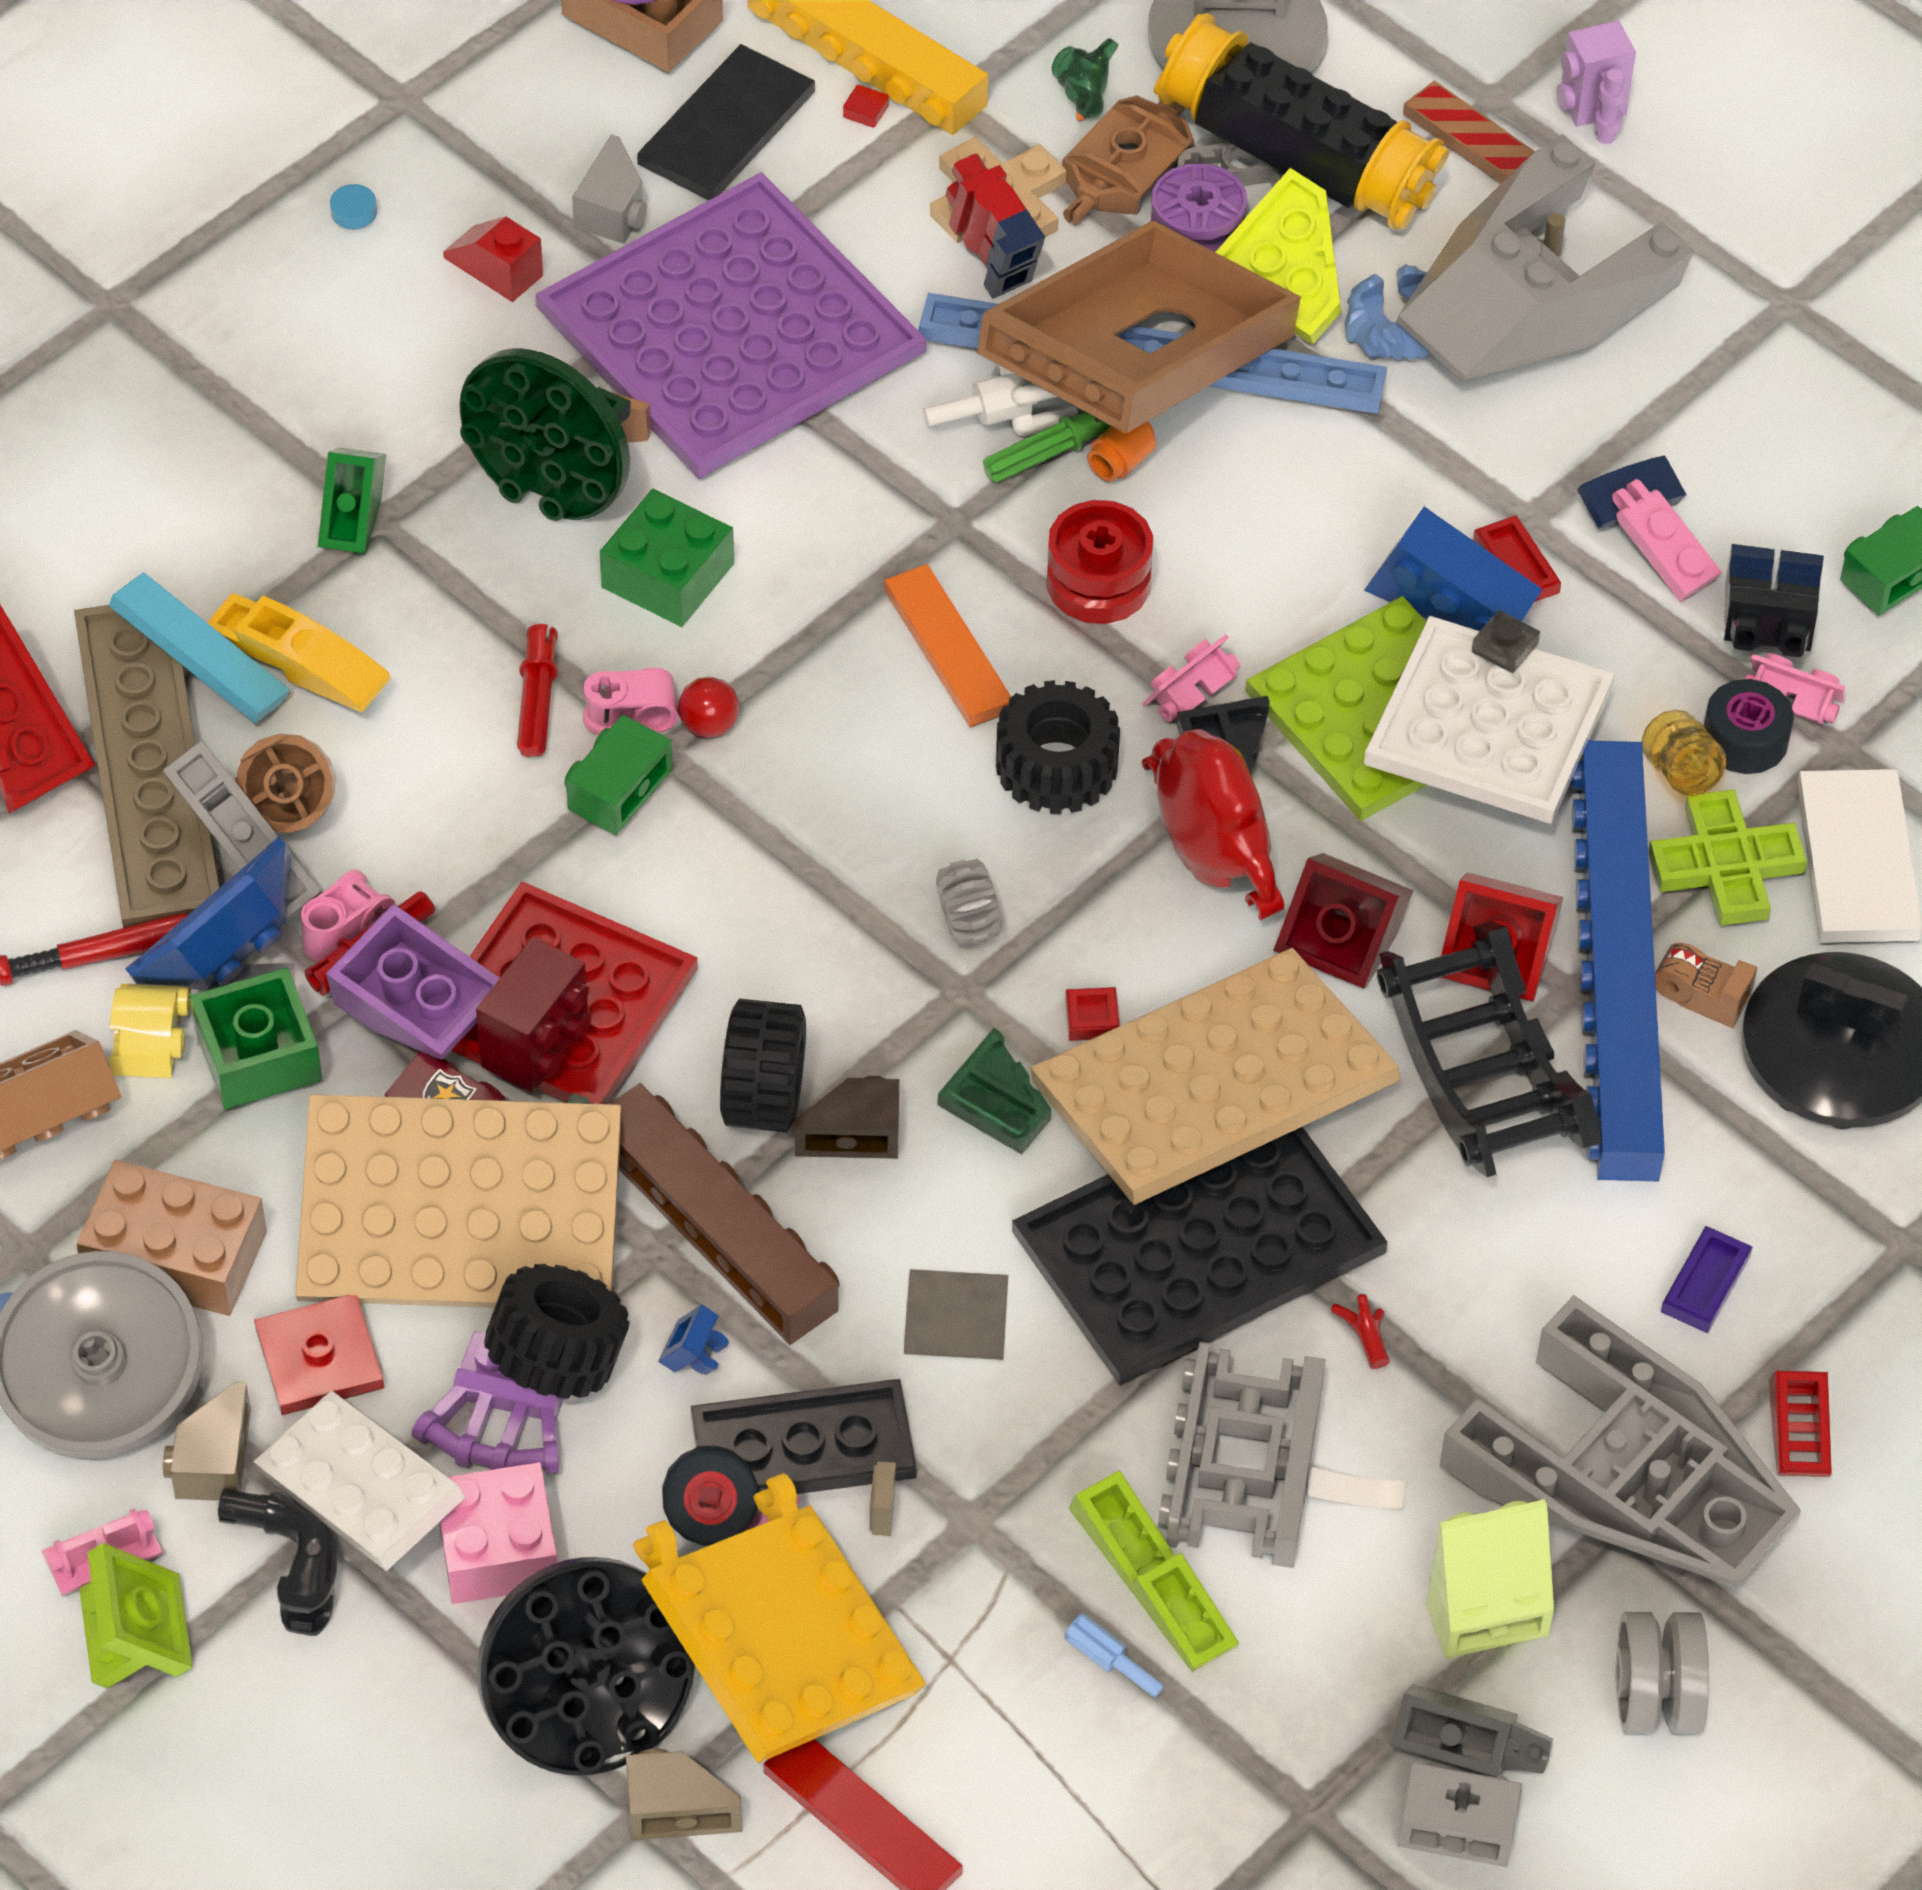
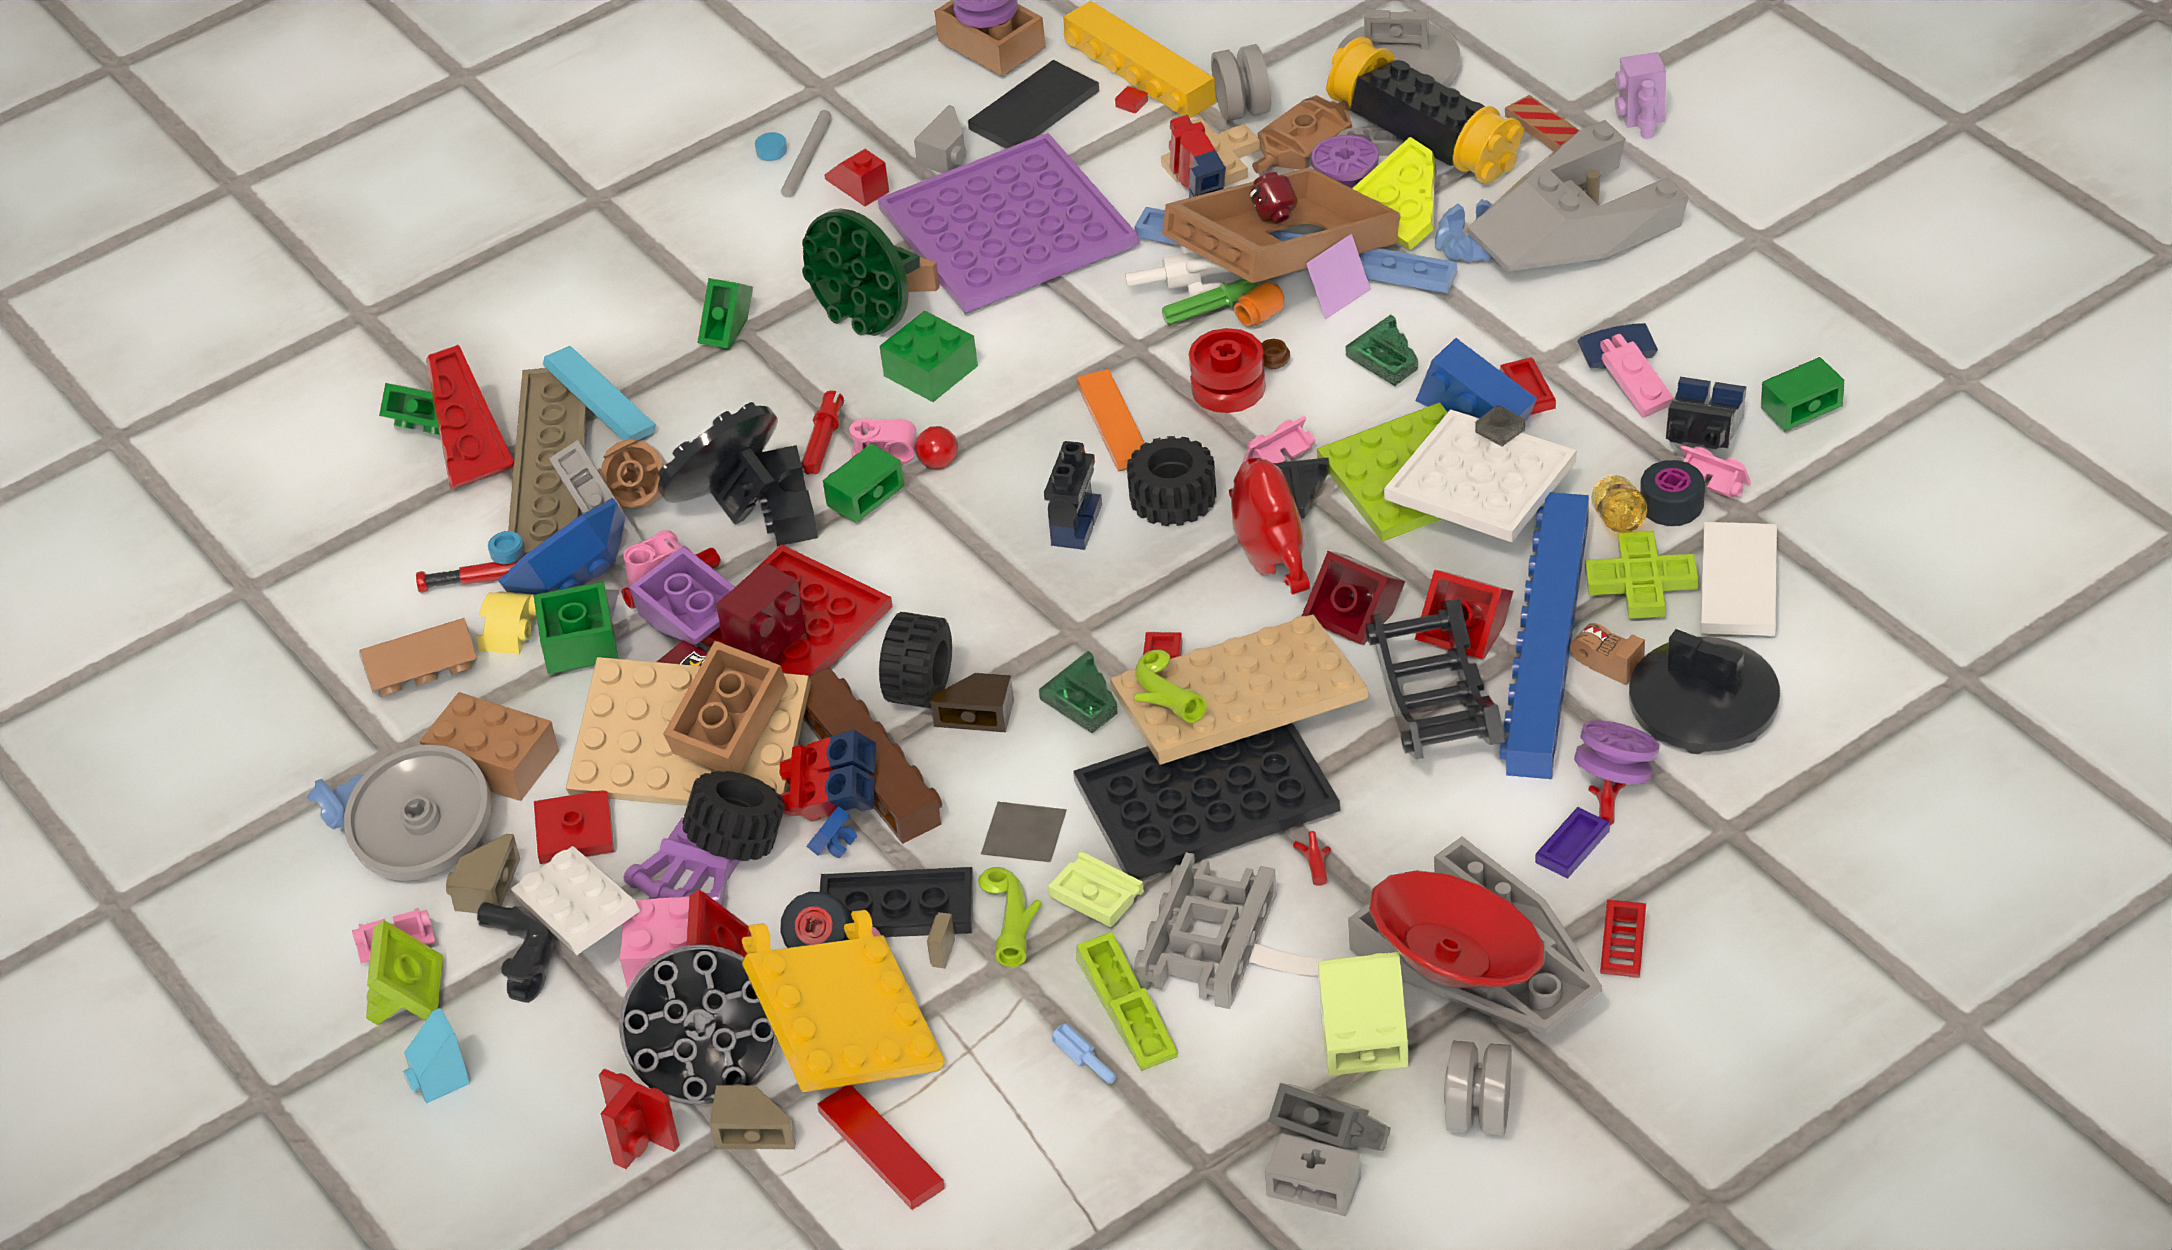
camera: 15 degrees right, 10 degrees down
(122, 912) = (506, 547): none -> dark azure tile
(215, 1745) = (435, 1059): none -> medium azure slope
(302, 649) = (667, 398): yellow slope -> none
(408, 216) = (806, 153): none -> light grey bar
(426, 768) = (723, 462): none -> black bracket
(519, 831) = (787, 499): none -> black arch
(521, 1172) = (726, 709): none -> medium nougat brick
(523, 1812) = (634, 1118): none -> red bracket
(573, 1516) = (714, 924): none -> red plate
(680, 1259) = (830, 776): none -> hips
(928, 786) = (1071, 501): none -> black hips
(968, 902) = (1086, 571): light grey gear -> none
(980, 1496) = (1012, 943): none -> lime plant
(1029, 81) = (1241, 82): none -> light grey wheel
(1078, 1401) = (1095, 889): none -> yellowish green plate
(1084, 76) = (1285, 84): clear green animal -> none
(1120, 281) = (1273, 197): none -> dark red head
(1159, 1114) = (1183, 702): none -> lime plant
(1162, 524) = (1275, 353): none -> reddish brown plate
(1228, 400) = (1338, 276): none -> lavender sticker
(1311, 517) = (1384, 352): none -> clear green wing
(1612, 1456) = (1456, 930): none -> red dish
(1741, 1209) = (1607, 799): none -> red bar
(1749, 1144) = (1616, 752): none -> medium lavender wheel

